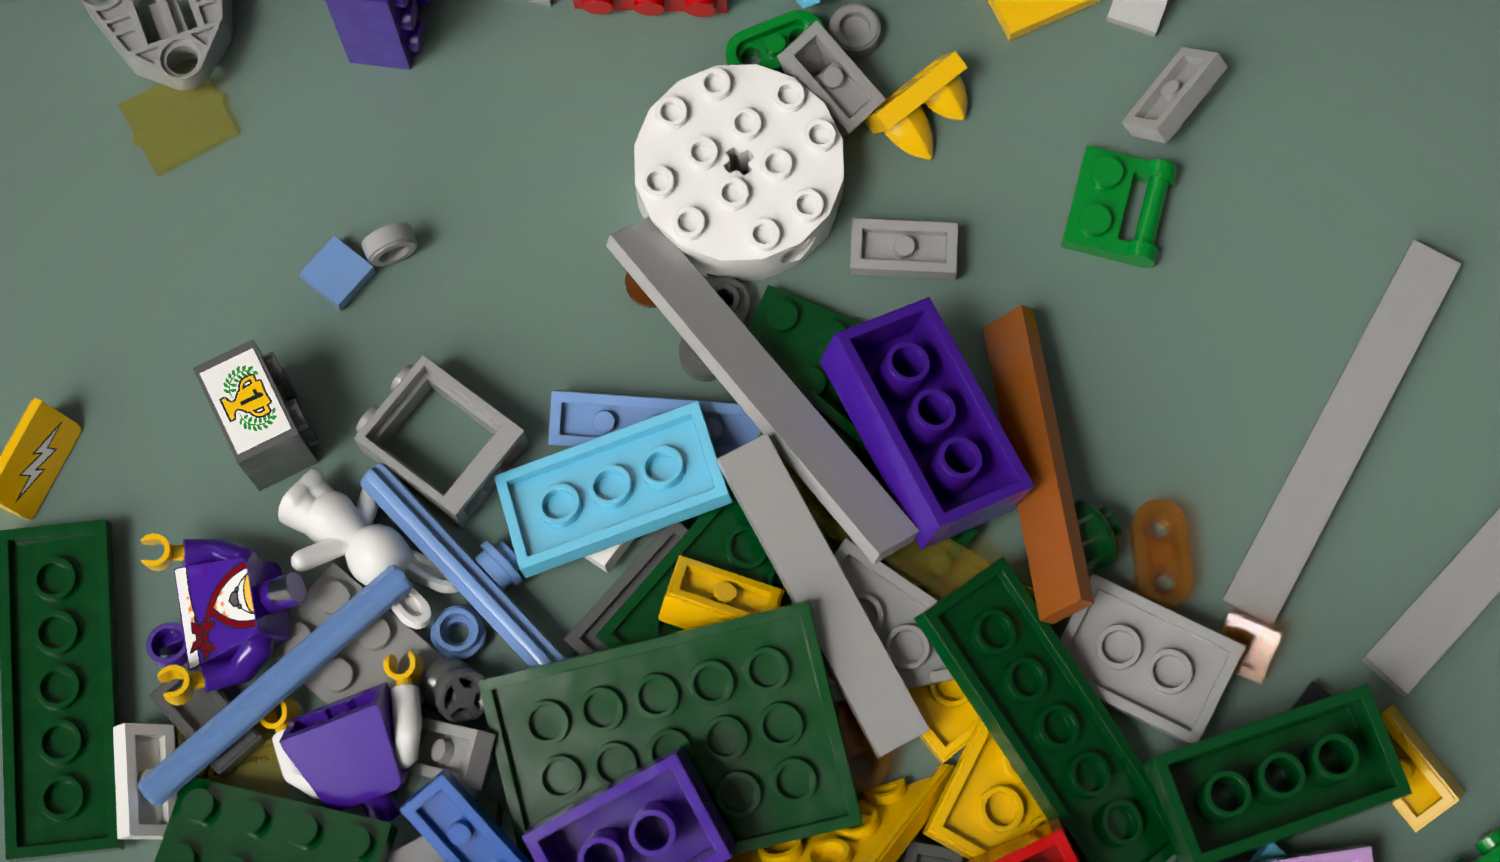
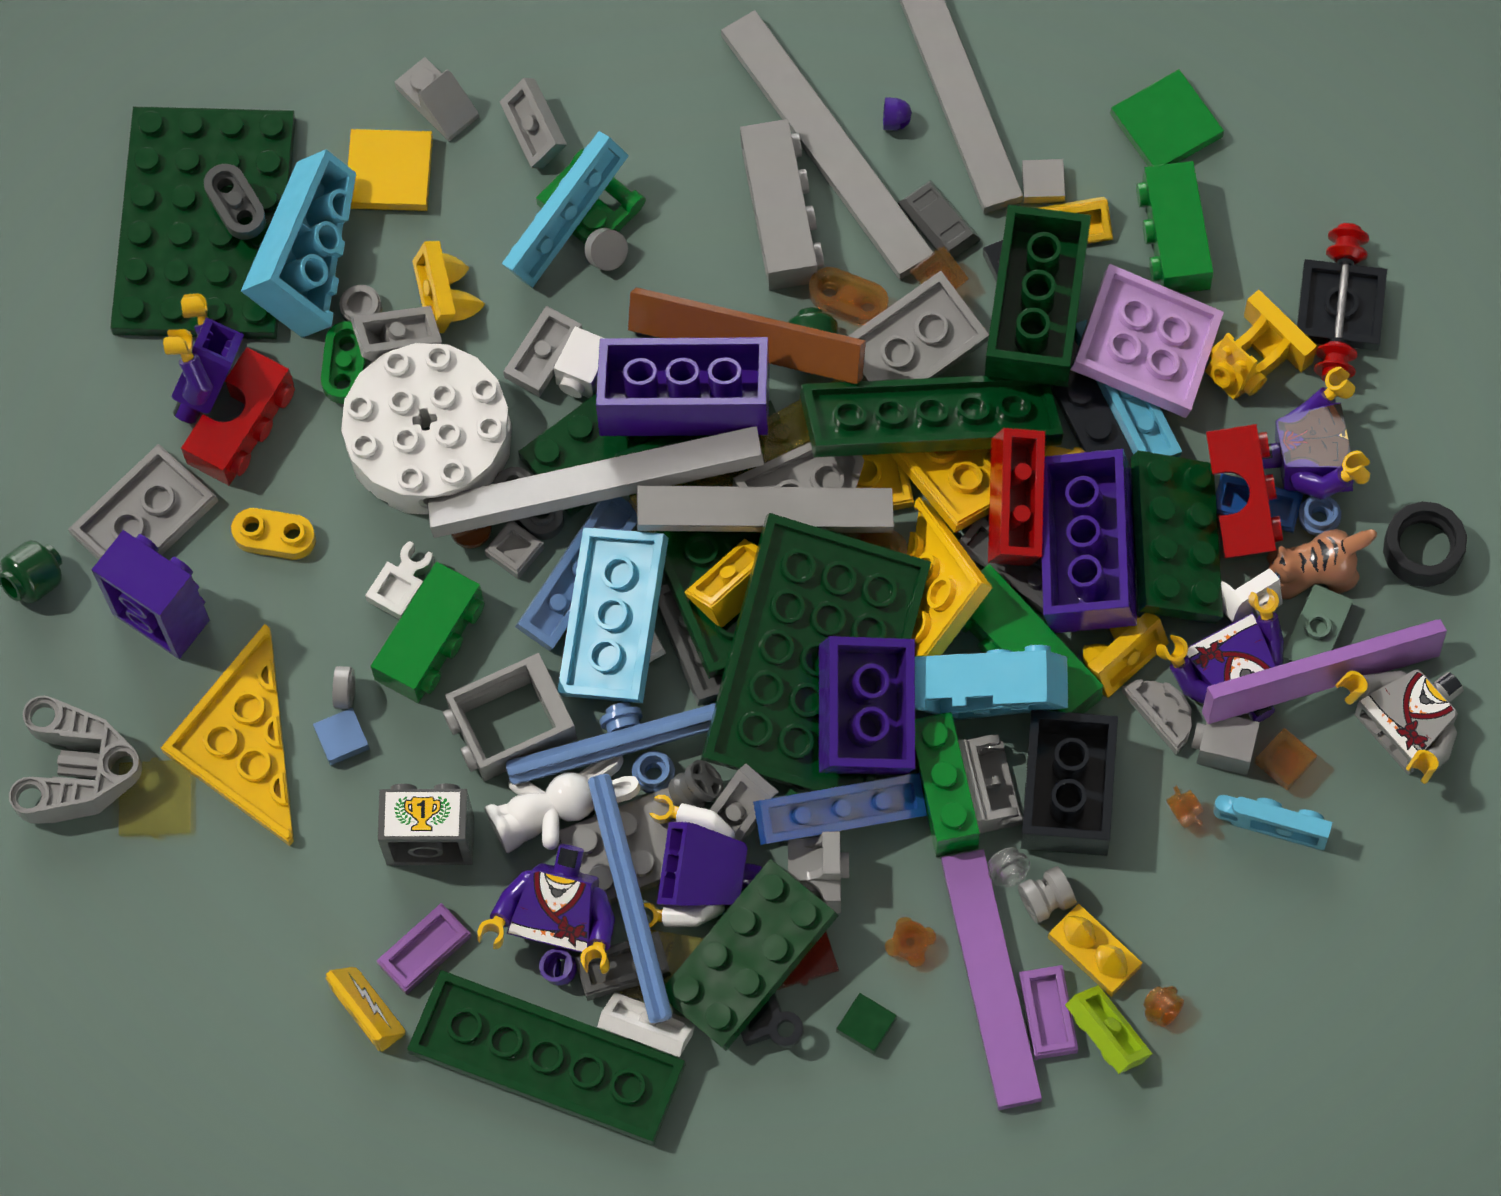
camera: 60 degrees left, 5 degrees down
(132, 489) = (423, 948): none -> medium lavender tile
(280, 168) = (237, 739): none -> yellow tile
(498, 300) = (428, 633): none -> green brick
(538, 240) = (398, 585): none -> white plate
(539, 77) = (271, 534): none -> yellow plate
(650, 343) = (514, 549): none -> light grey tile
(905, 286) = (578, 364): none -> white brick
(1065, 252) = (606, 249): none -> light grey tile
(1083, 181) = (565, 209): none -> medium azure plate
(1232, 415) = (779, 203): none -> light grey brick
(1320, 611) = (939, 220): none -> dark grey tile
(1425, 491) = (896, 114): none -> dark purple hinge
(1442, 709) = (1043, 181): none -> light grey tile

